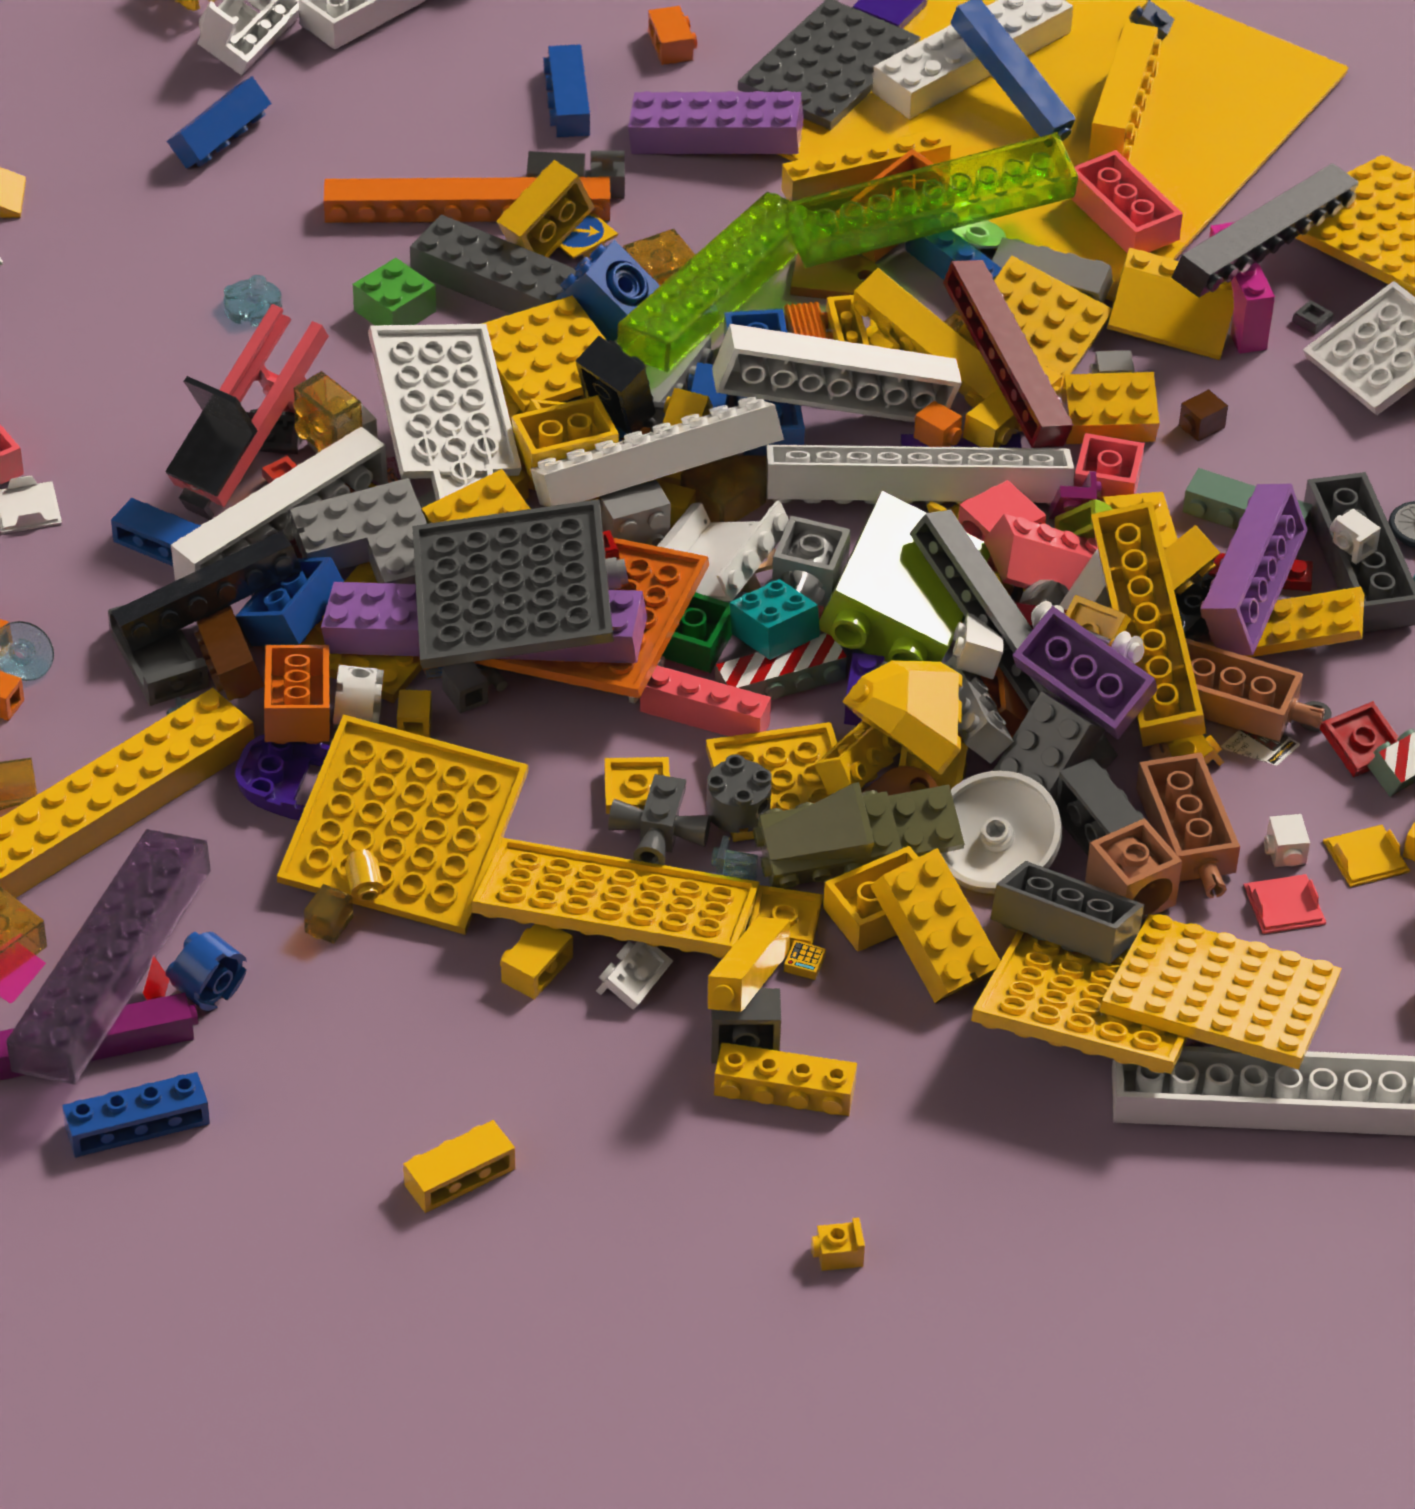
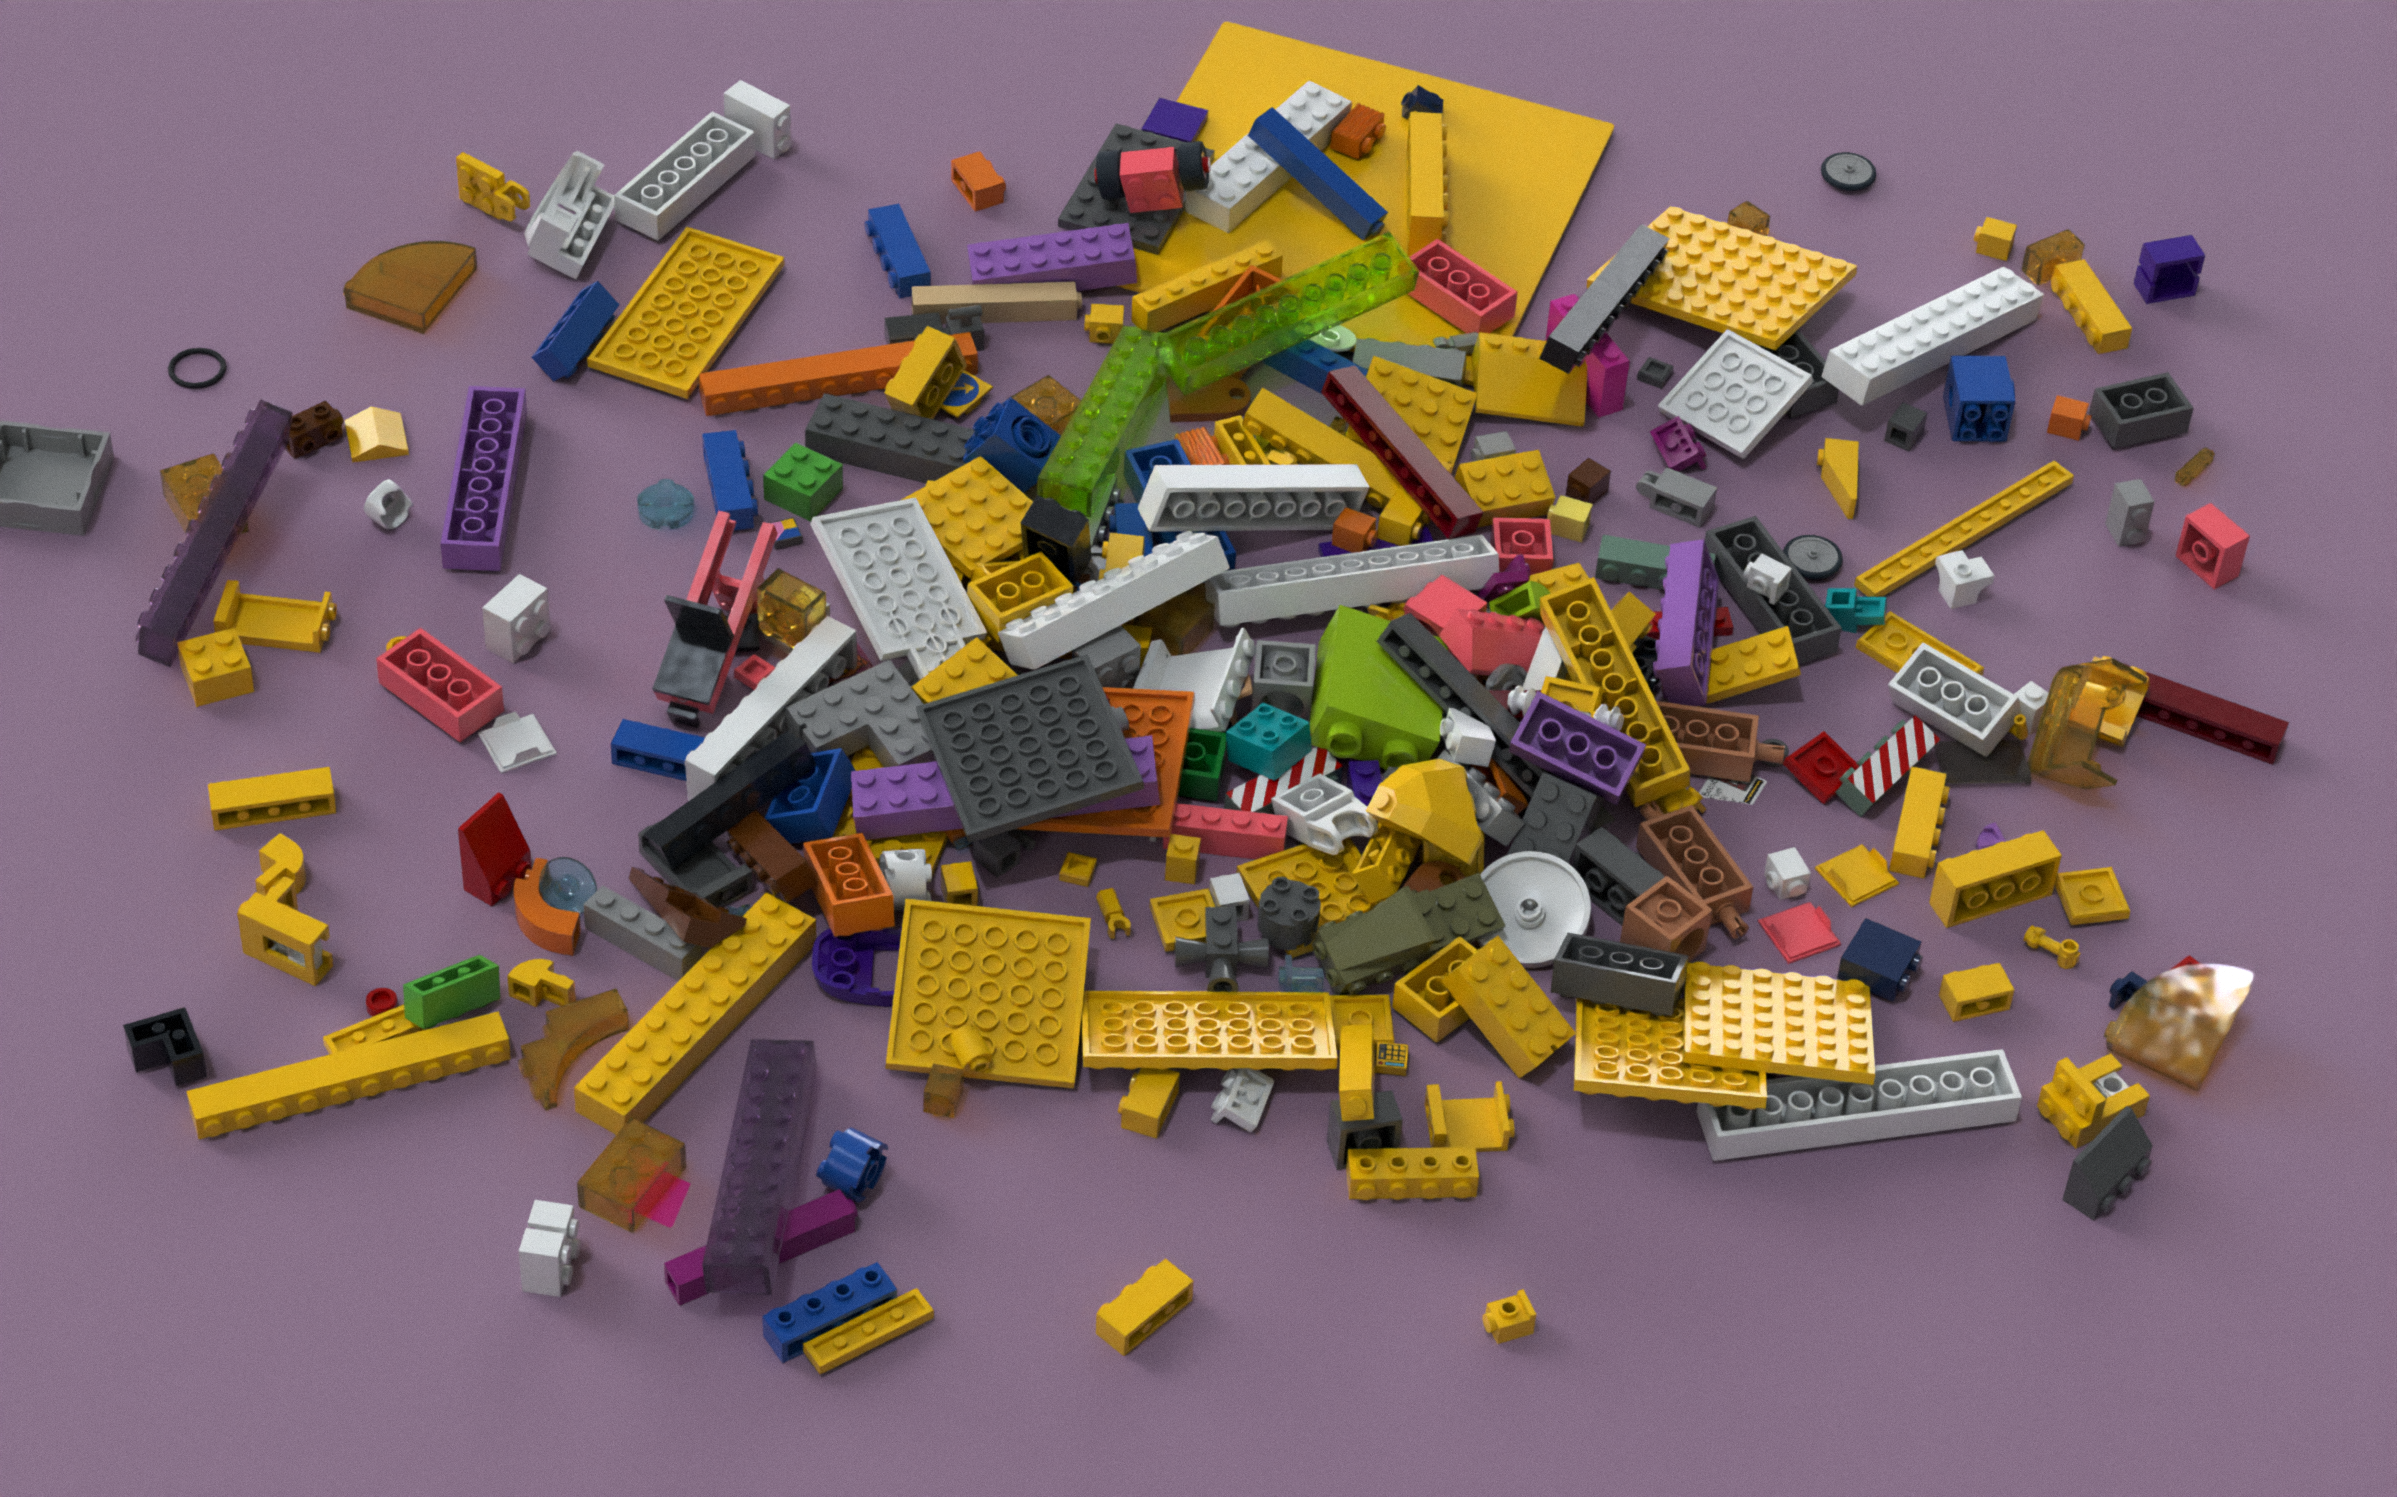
camera: 15 degrees left, 0 degrees up
(61, 385) = (516, 618): none -> white brick
(77, 706) = (639, 933): none -> light grey brick
(78, 55) = (411, 282): none -> clear yellow brick
(79, 249) = (484, 478): none -> medium lavender brick
(126, 695) = (685, 912): none -> reddish brown wedge
(156, 981) = (806, 1184): red sticker -> none
(169, 1140) = (868, 1331): none -> yellow plate
(320, 283) = (728, 477): none -> blue brick
(337, 120) = (686, 312): none -> yellow plate
(358, 345) = (788, 533): none -> tile
(544, 717) = (1077, 869): none -> yellow tile
(564, 765) = (1112, 912): none -> yellow bar
(652, 723) = (1182, 859): none -> yellow brick
(656, 153) = (1002, 301): none -> tan brick
(688, 764) = (1230, 892): none -> white brick
(751, 186) = (1104, 323): none -> yellow brick
(807, 700) = (1323, 814): none -> white brick
(839, 49) = (1152, 176): none -> brick
(864, 1038) = (1469, 1122): none -> yellow panel
(1074, 37) = (1358, 131): none -> orange brick
(1112, 257) = (1462, 342): none -> light grey bar
(1172, 448) = (1570, 518): none -> light yellow brick
(1296, 442) = (1678, 495): none -> light grey brick
(1312, 392) = (1676, 444): none -> magenta bracket
(1359, 944) = (1881, 959): none -> dark blue brick

